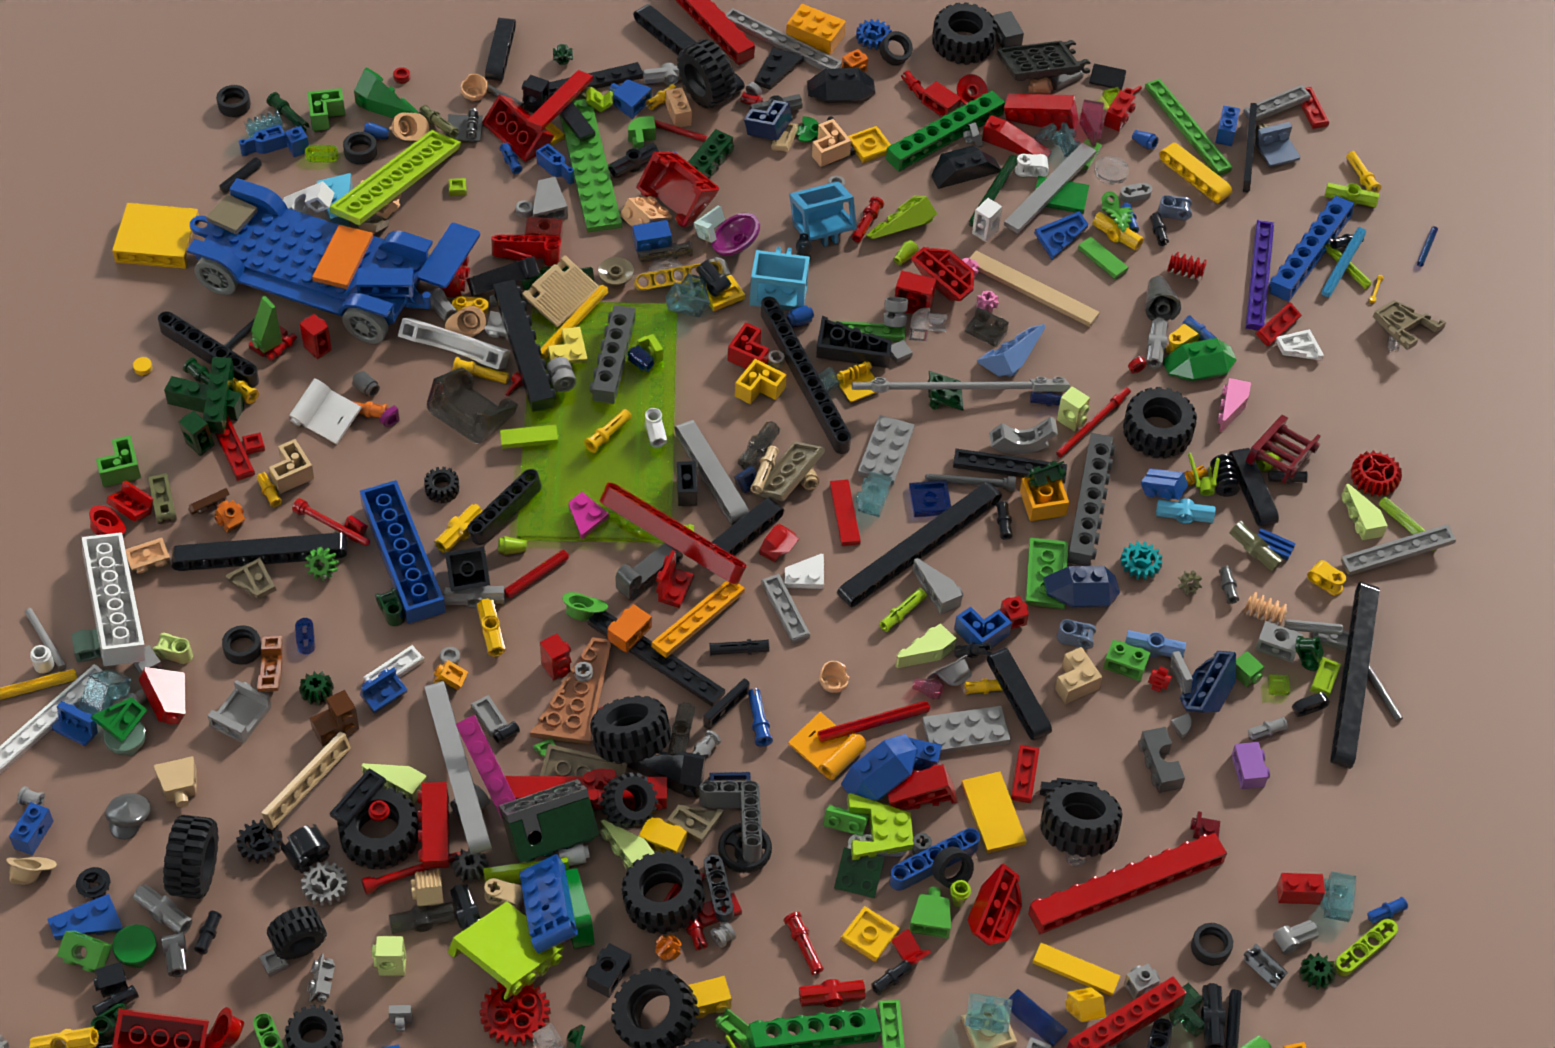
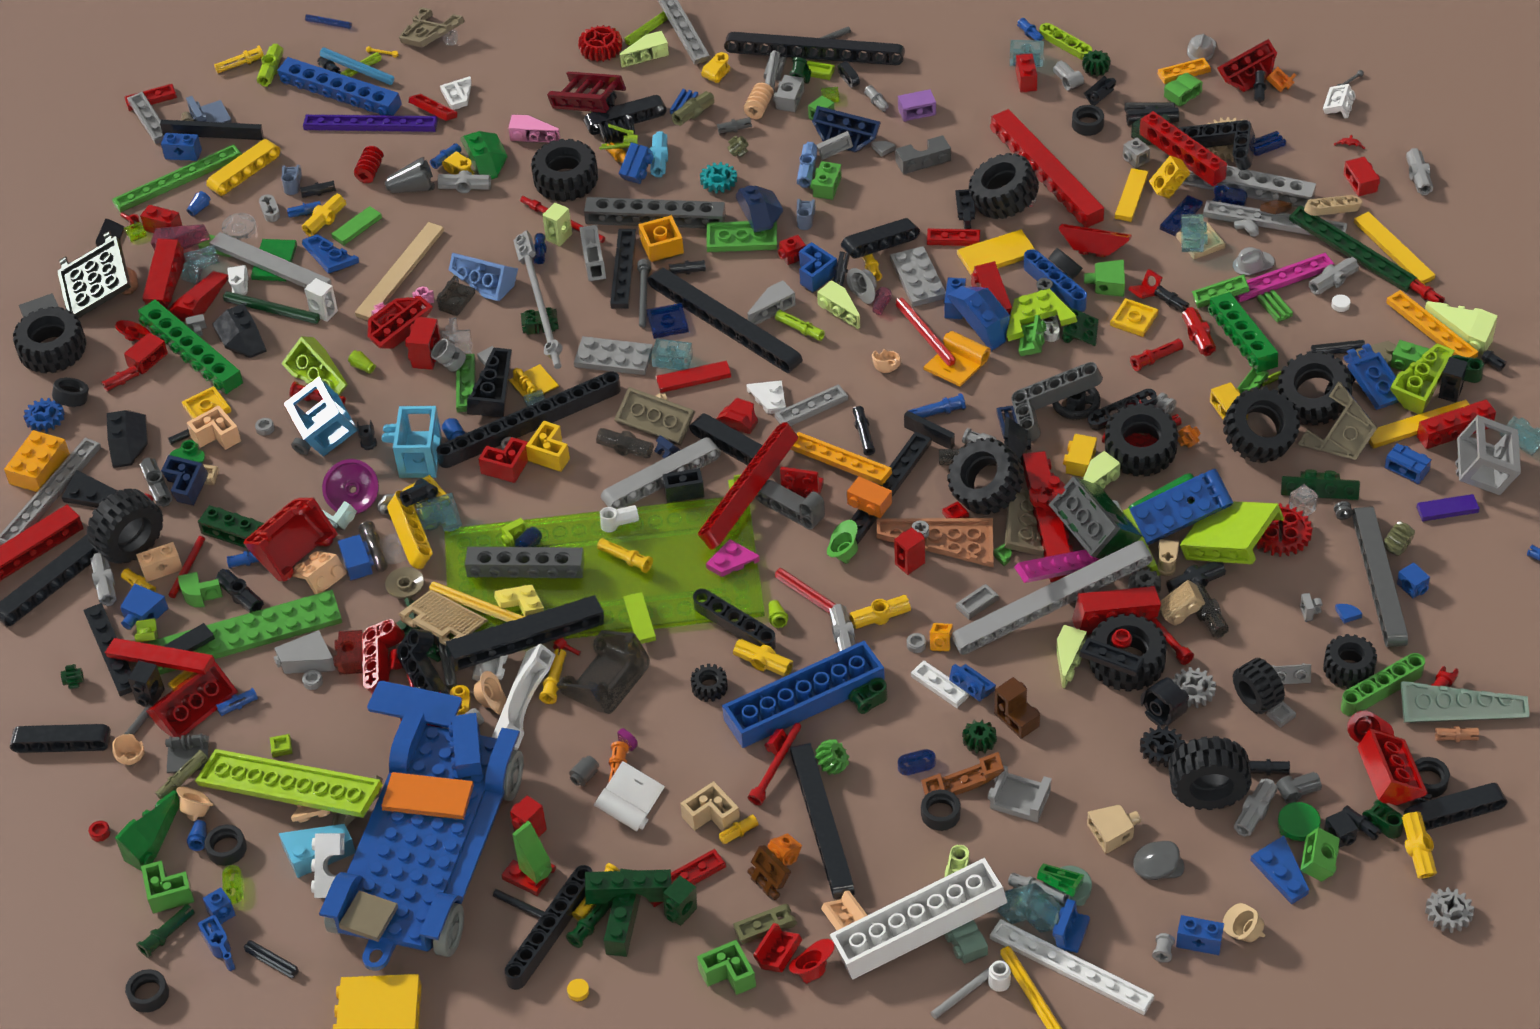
camera: 90 degrees left, 5 degrees down
(90, 875) = (1250, 870): black gear -> none
(165, 693) = (1019, 854): slope -> none
(253, 443) = (674, 859): red tile -> none
(253, 579) = (856, 817): dark tan wing -> none
(262, 123) = (193, 945): clear light blue piece -> none
(305, 780) = (1091, 716): tan tile -> none
(389, 955) = (1258, 616): yellowish green brick -> none
(467, 568) = (822, 629): black slope -> none
(506, 732) = (997, 585): black pin -> none
(554, 163) = (246, 658): blue piece -> none
(561, 374) = (552, 597): light grey wheel -> none
(607, 981) = (1229, 471): black brick -> none
(615, 806) = (1063, 462): black tyre -> none
(695, 821) = (1056, 437): dark tan wing -> none
(766, 464) = (655, 431): tan pin -> none
(855, 60) = (92, 423): orange brick -> none
(960, 892) = (1086, 259): lime cone -> none
(1052, 470) = (645, 227): dark green hinge -> none
(1079, 678) = (852, 205): tan brick -> none
(1112, 208) = (302, 210): bright green plant -> none
(1137, 365) = (492, 192): red tile -> none
(1159, 679) = (844, 158): red gear -> none
(1204, 826) = (981, 130): dark red bracket -> none

